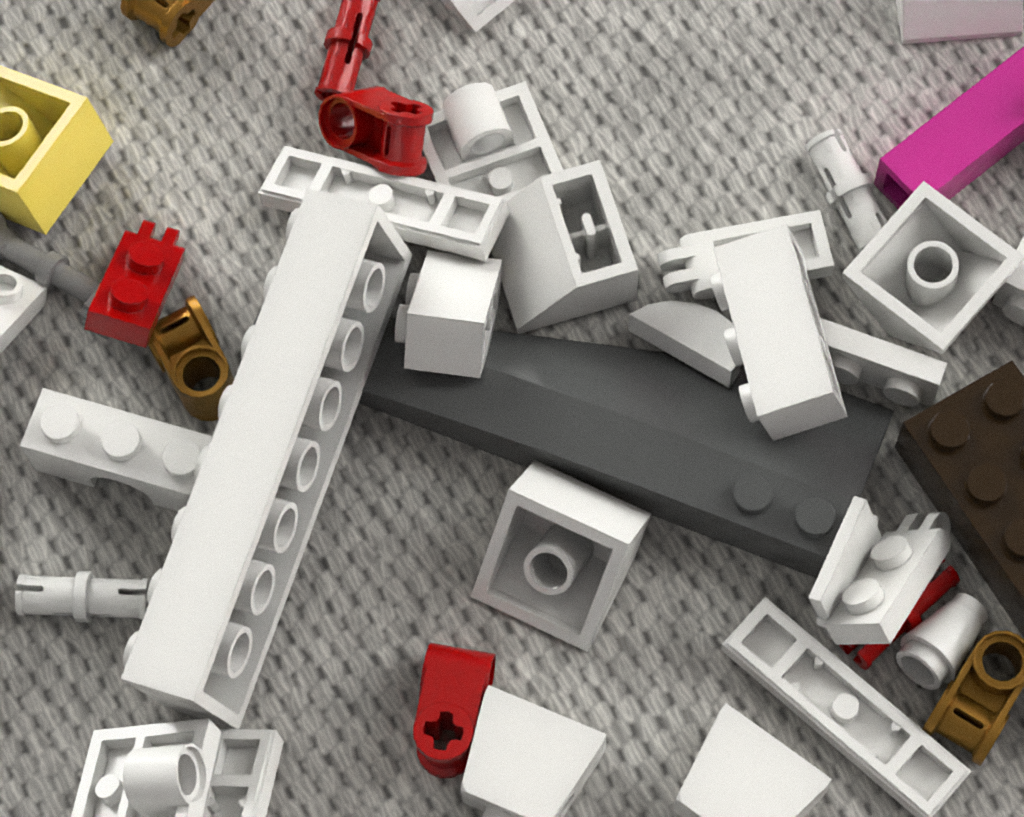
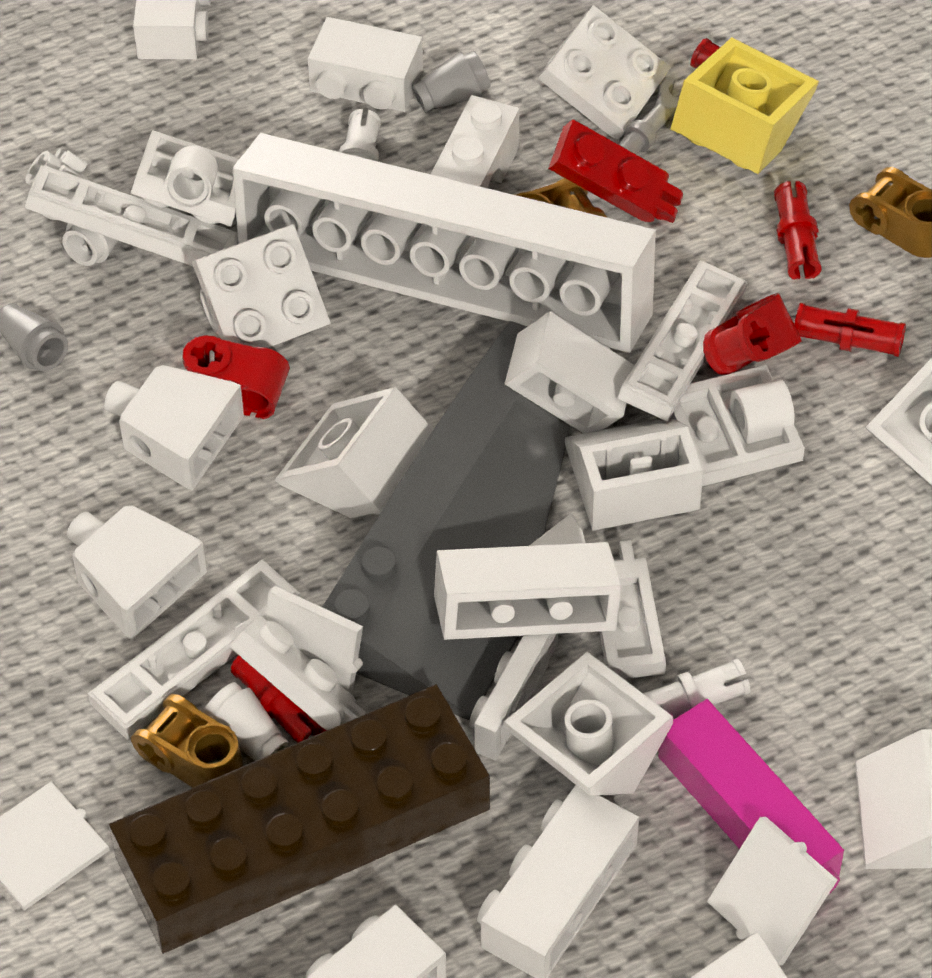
camera: 90 degrees right, 15 degrees down
(199, 99) = (797, 230): none -> red pin
(330, 683) = (261, 290): none -> white plate

